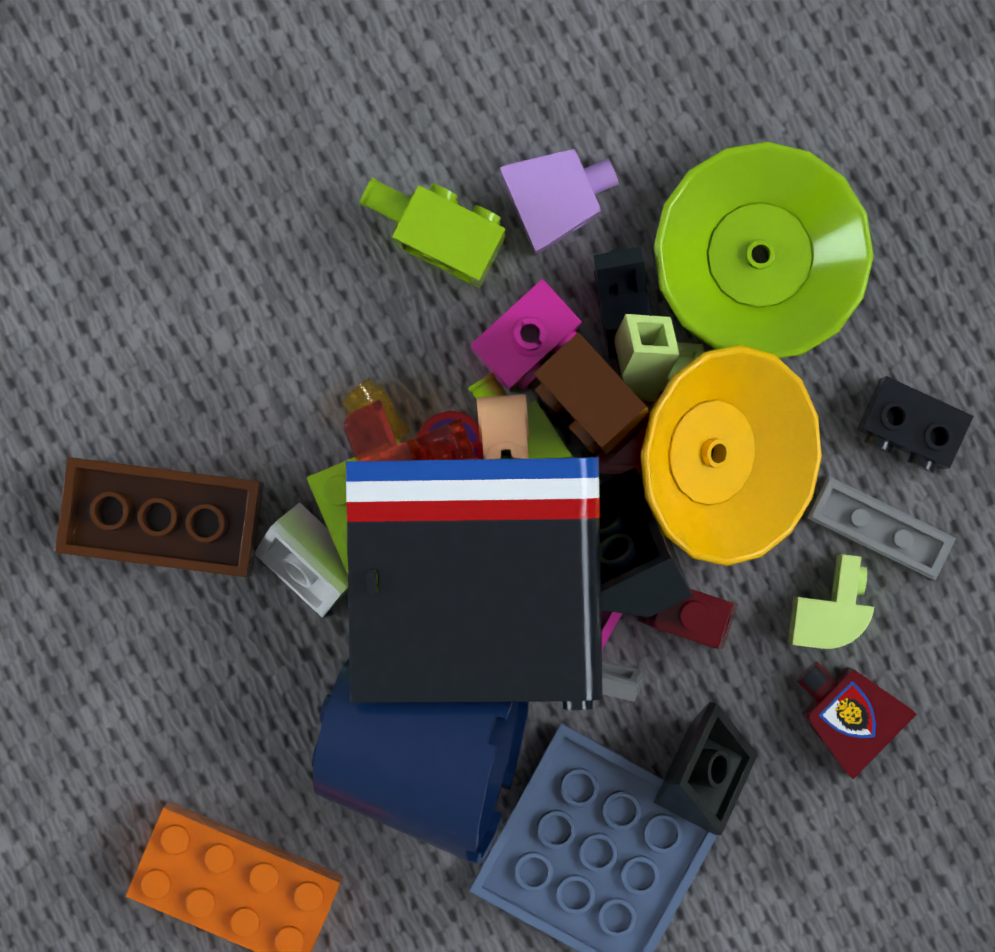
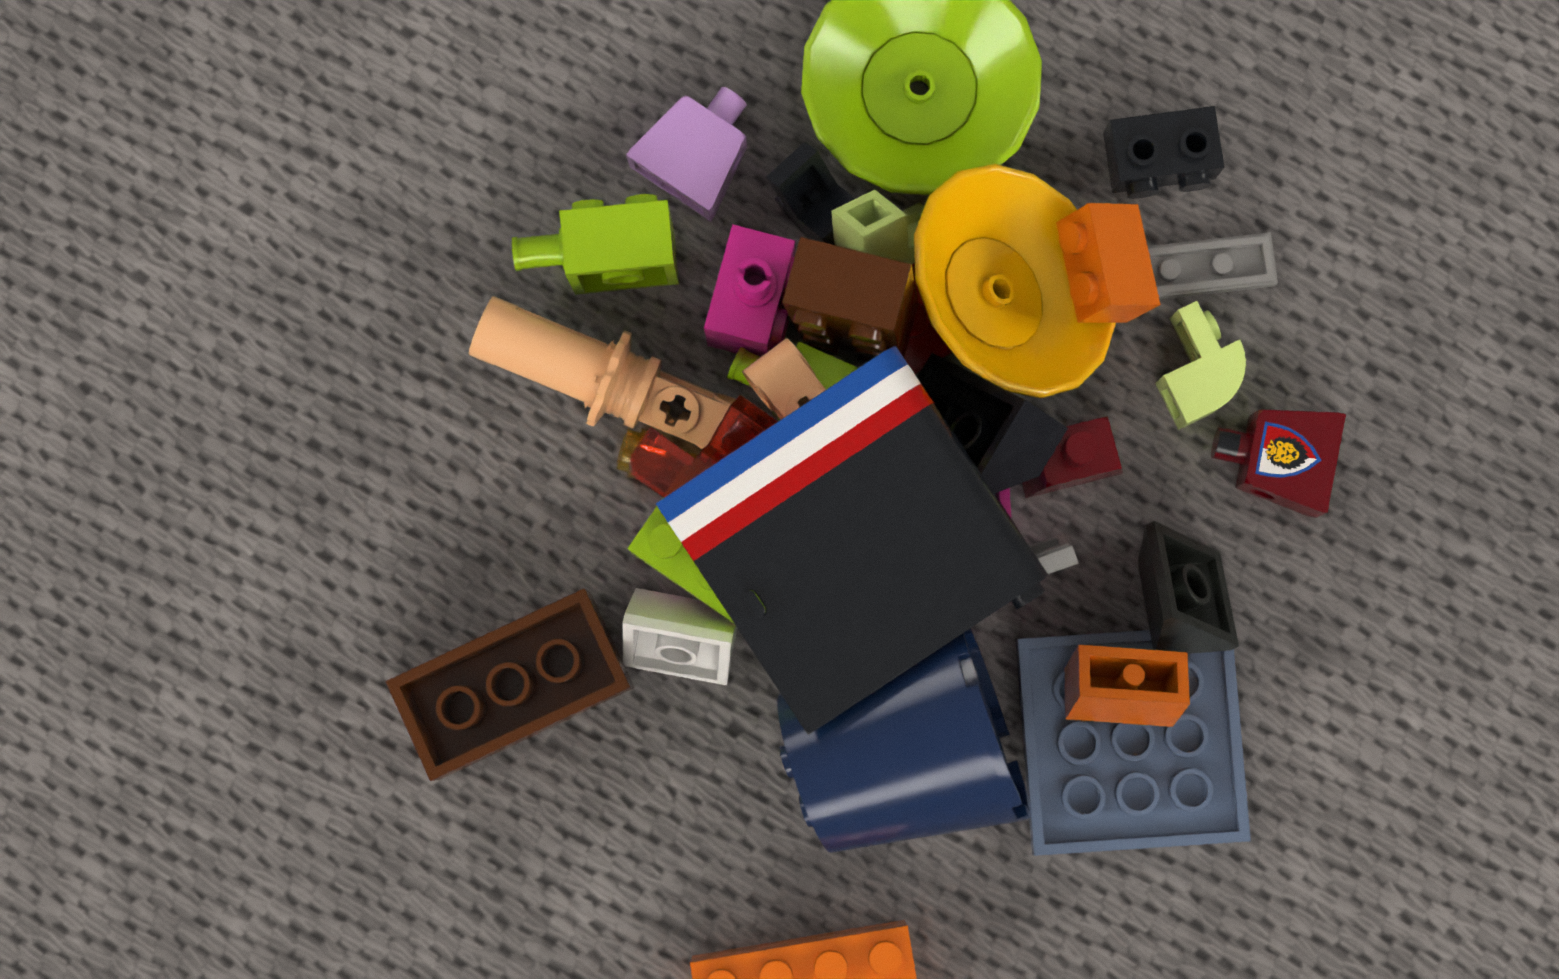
camera: 30 degrees left, 5 degrees down
(375, 327) = (594, 372): none -> light nougat piece
(615, 811) = (1126, 685): none -> orange brick
(812, 485) = (1108, 263): none -> orange brick

